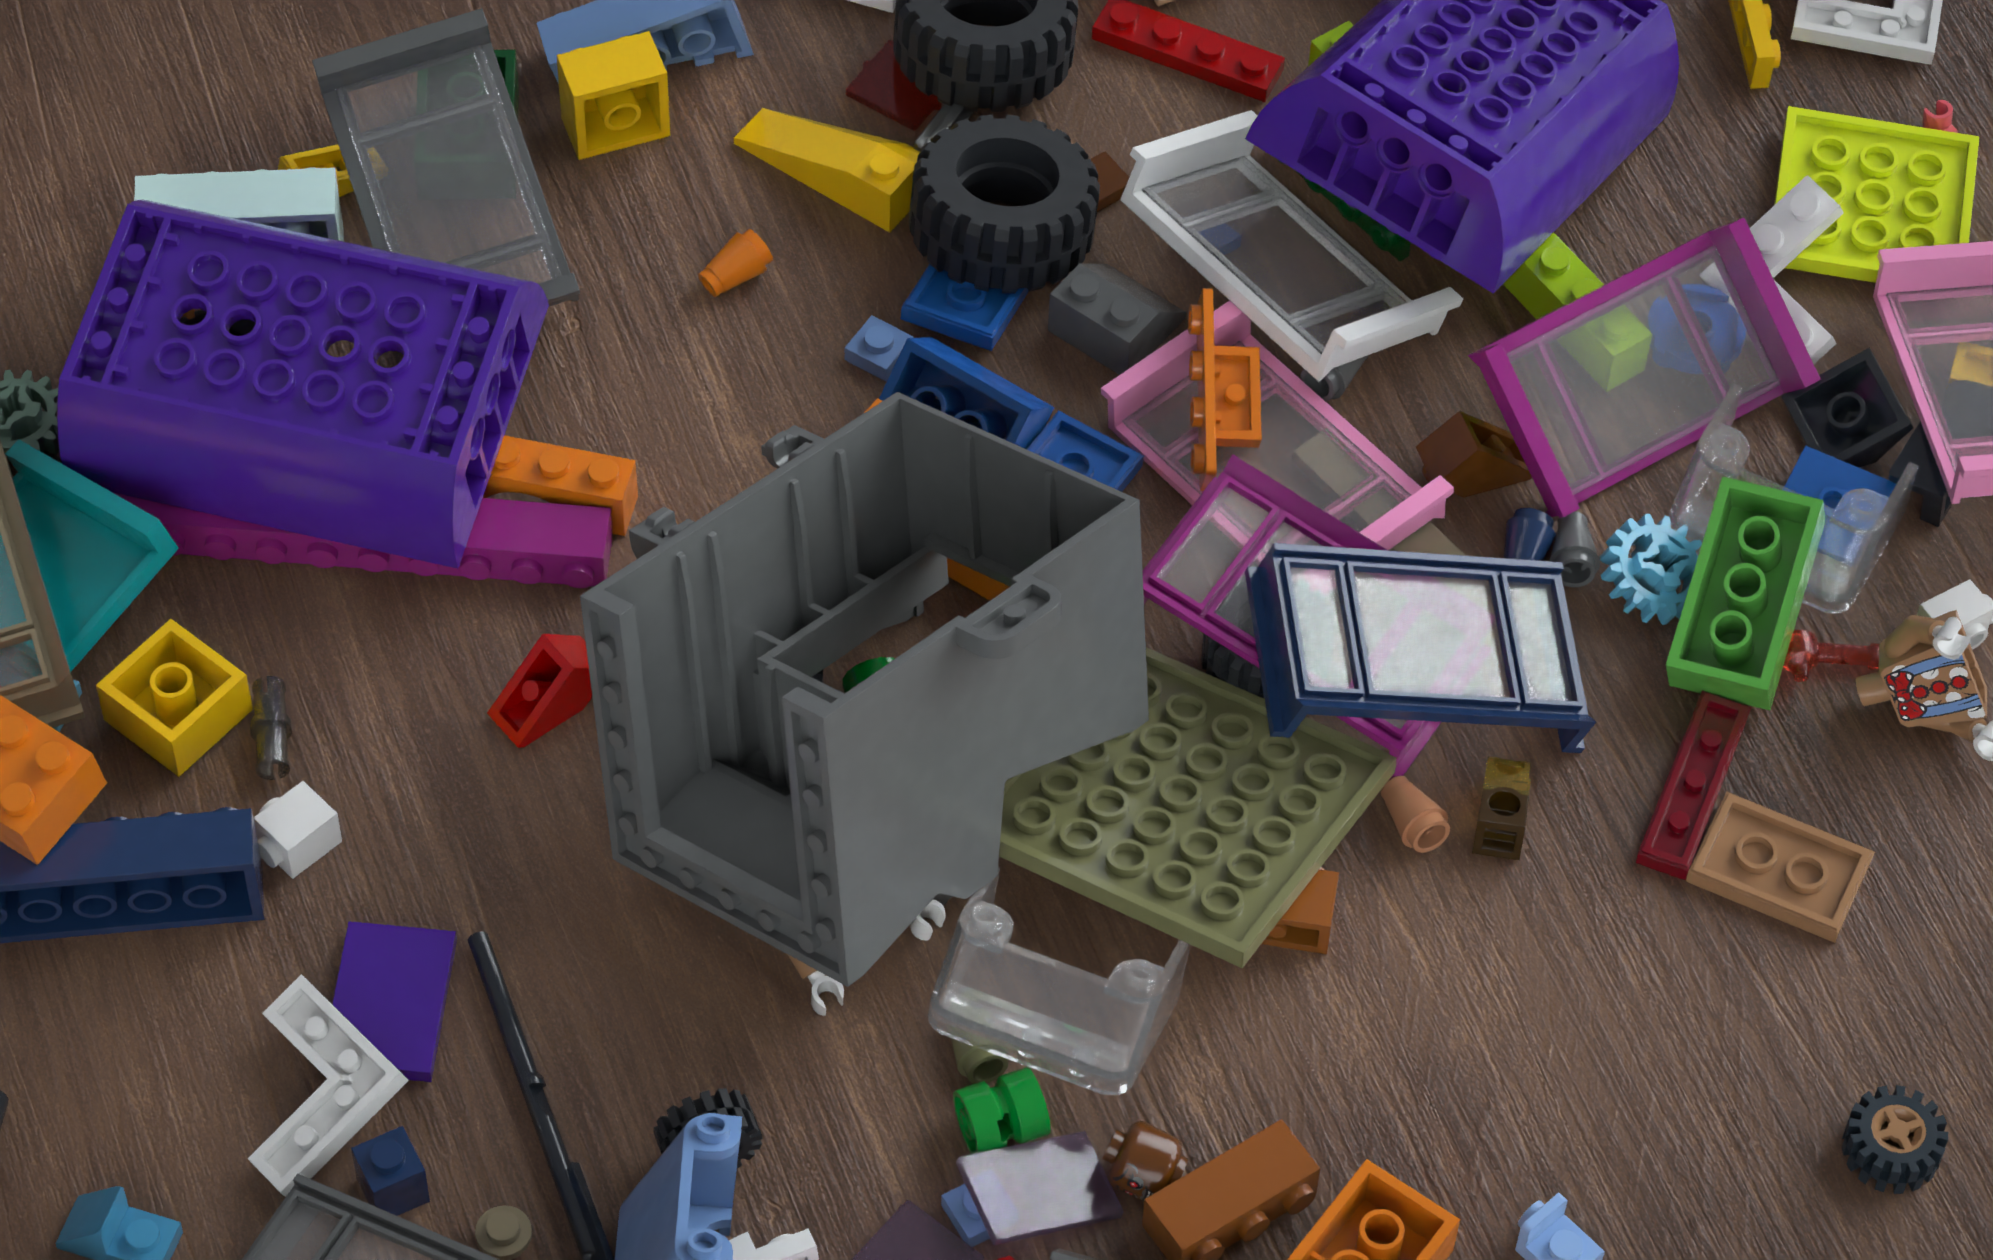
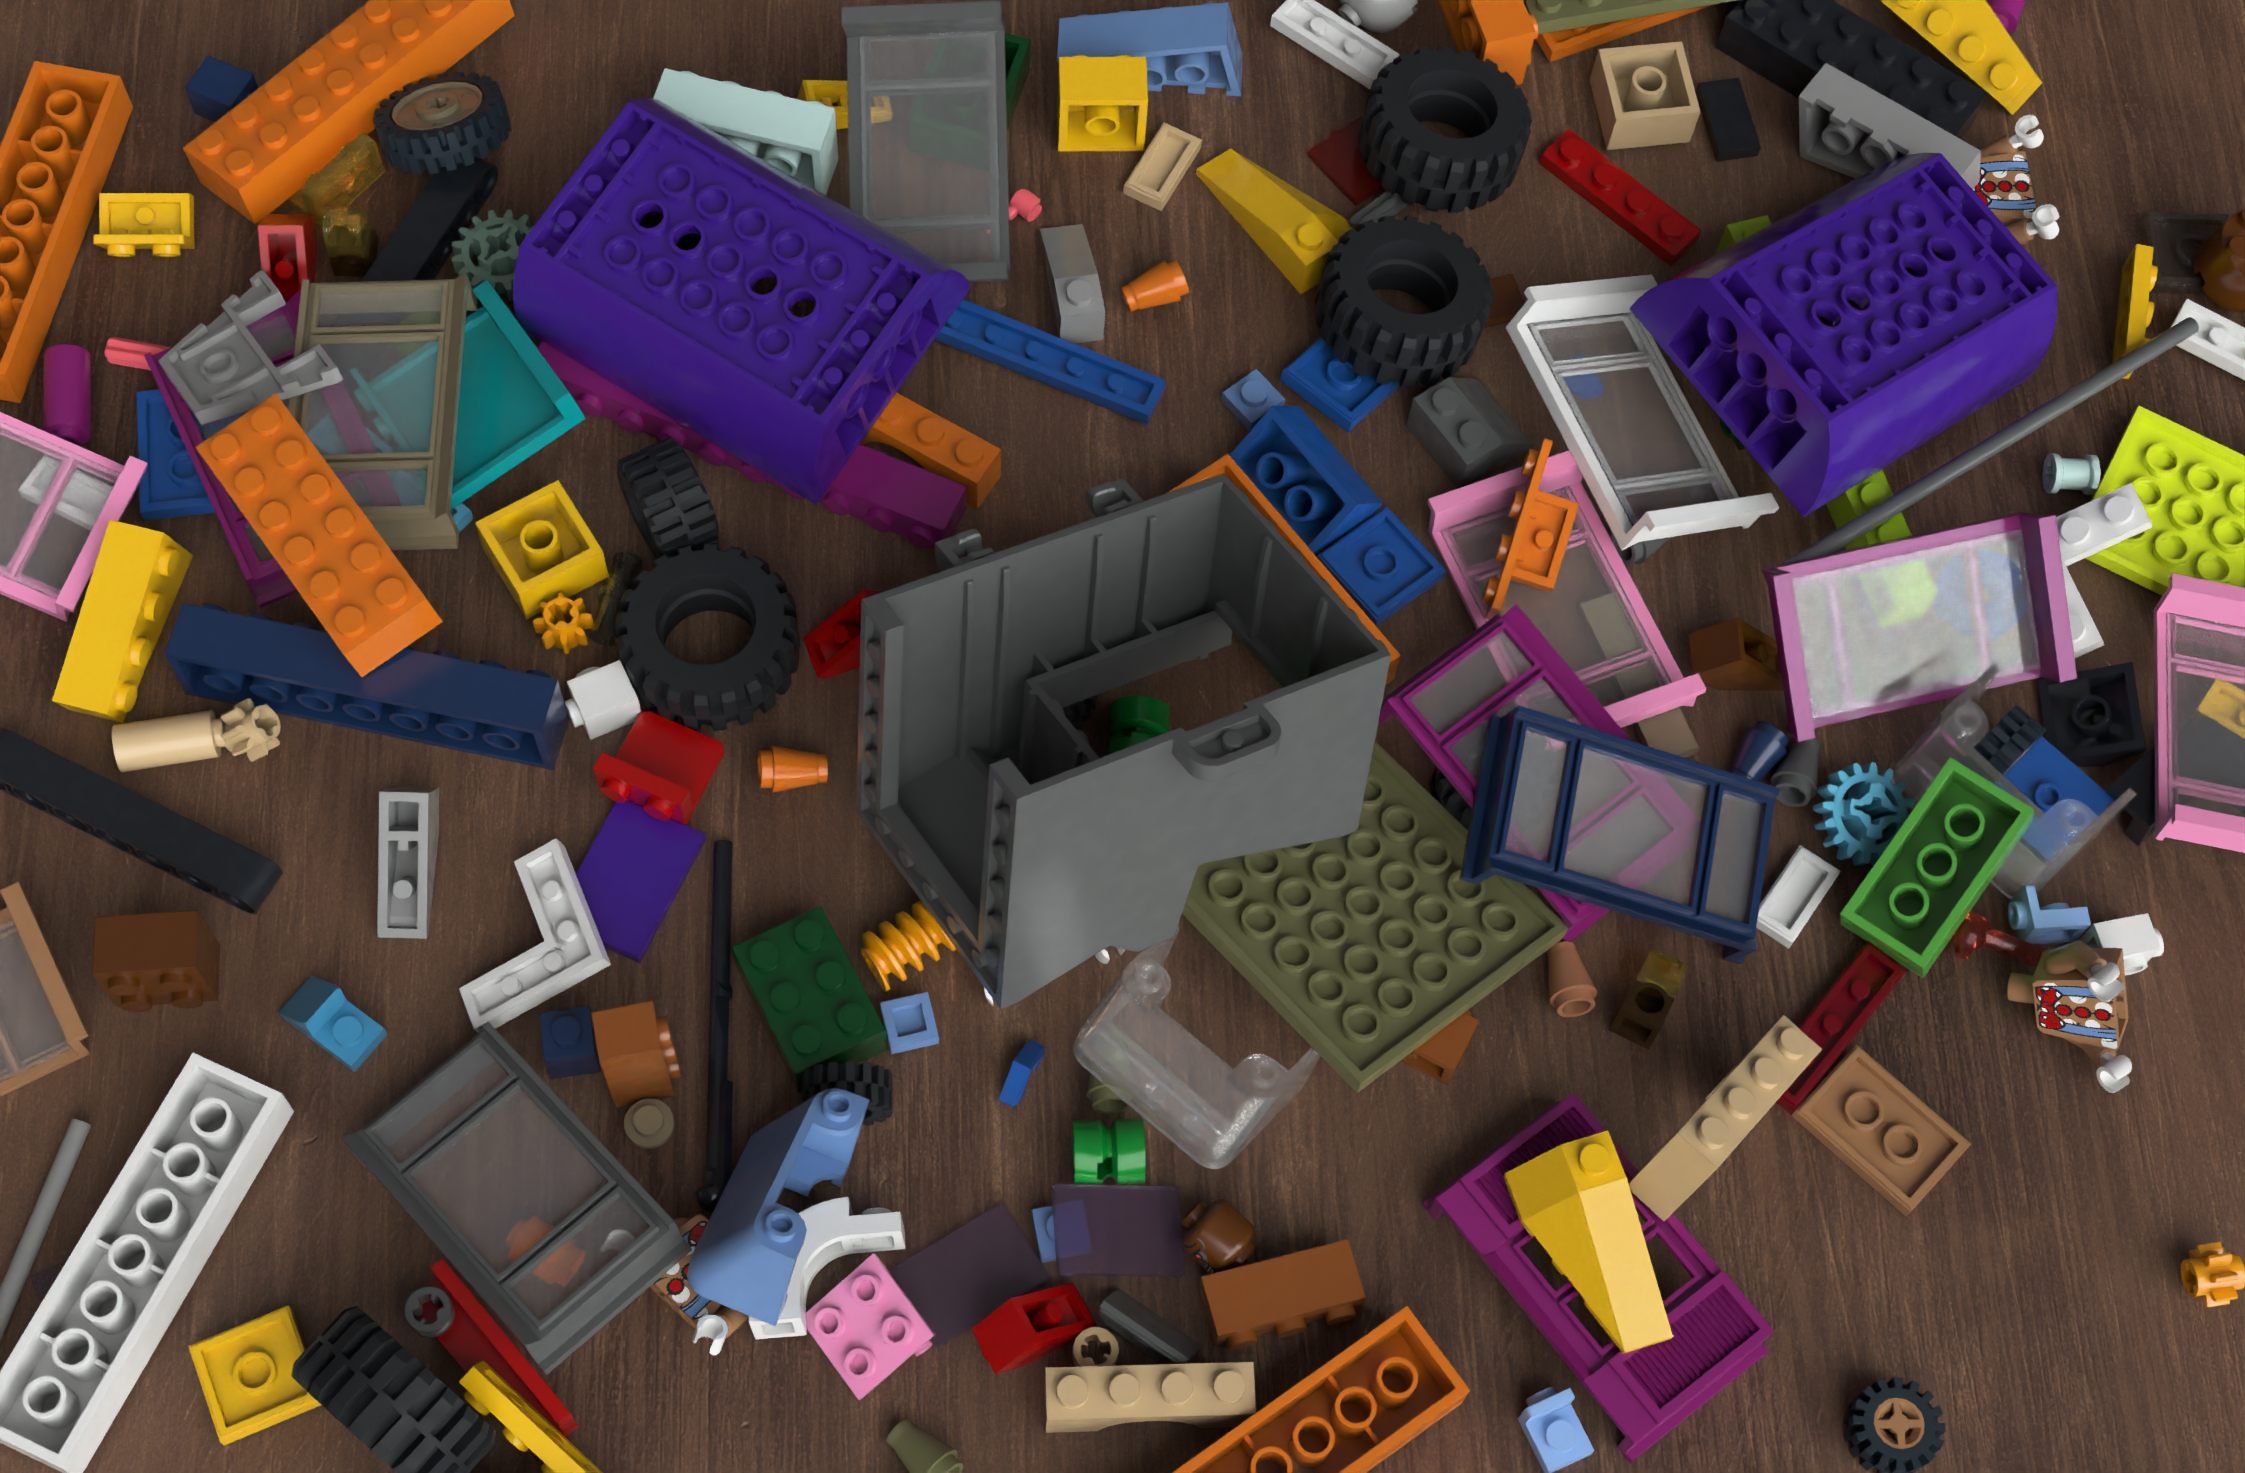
camera: 15 degrees right, 10 degrees up
(143, 1050) = (406, 860): none -> light grey slope
(223, 766) = (563, 623): none -> light orange gear
(297, 608) = (667, 499): none -> black tyre
(378, 678) = (697, 584): none -> black tyre
(383, 879) = (660, 768): none -> red bracket
(471, 1152) = (636, 1053): none -> dark orange brick
(521, 842) = (790, 768): none -> orange cone
(566, 219) = (1024, 204): none -> coral hand
(627, 1053) = (809, 995): none -> dark green brick
(647, 285) = (1073, 284): none -> light grey slope
(655, 365) = (1053, 361): none -> blue plate
(696, 145) = (1162, 166): none -> tan tile
(713, 972) = (903, 944): none -> light orange piece
(744, 1052) = (909, 1023): none -> medium blue plate
(880, 1069) = (1020, 1071): none -> blue tile
(1521, 1022) = (1589, 1226): none -> yellow wedge
(1614, 670) = (1795, 896): none -> white tile
(1620, 884) = (1724, 1118): none -> tan arch
(1647, 1138) = (1642, 1390): none -> magenta piece
(1662, 172) = (1999, 441): none -> dark grey piece
(1744, 190) = (2071, 474): none -> light aqua bush
(1776, 451) = (2010, 739): none -> black wheel
(1870, 622) = (2046, 925): none -> light blue bracket

